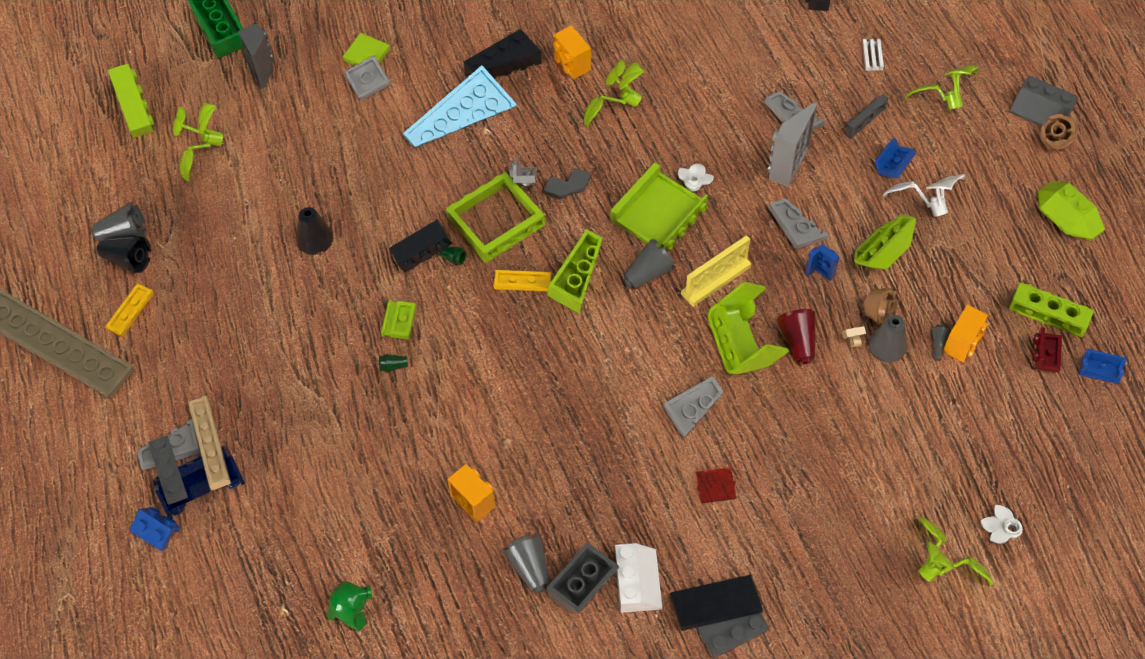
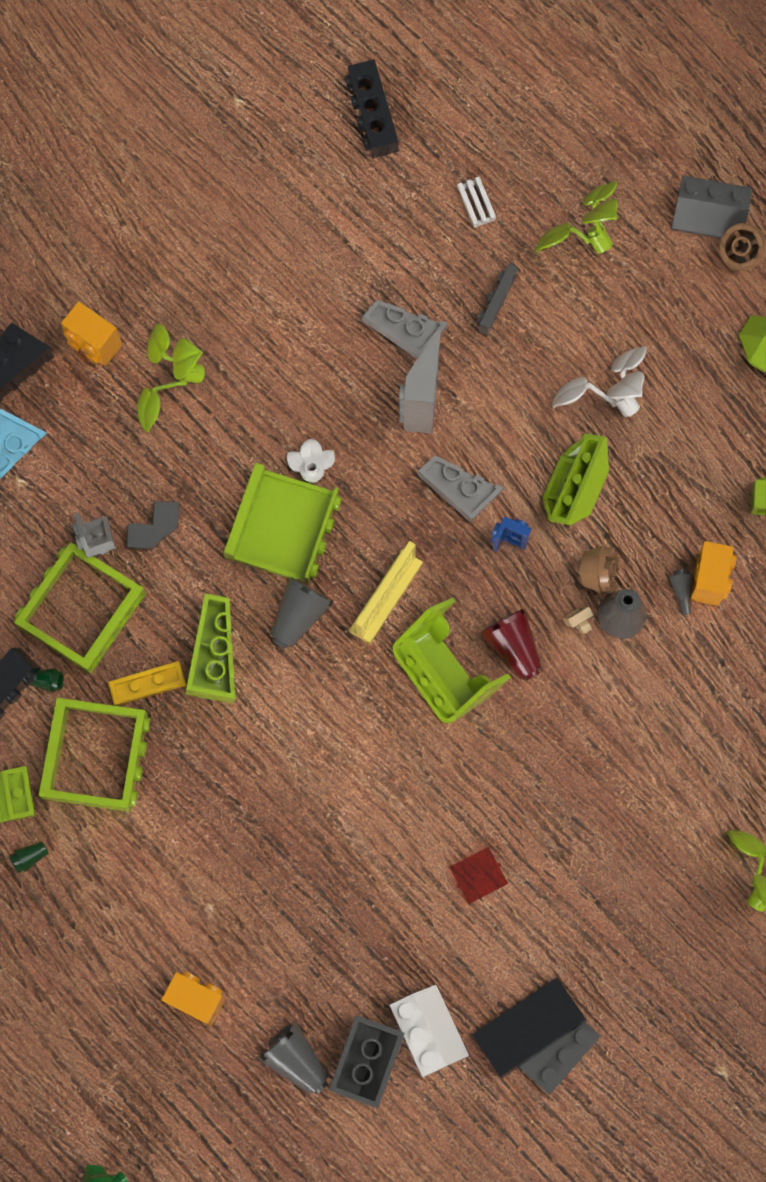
camera: 20 degrees left, 15 degrees up
(474, 350) = (54, 749): none -> lime window
(692, 405) = (415, 782): light grey wing -> none
(894, 159) = (551, 352): blue bracket -> none

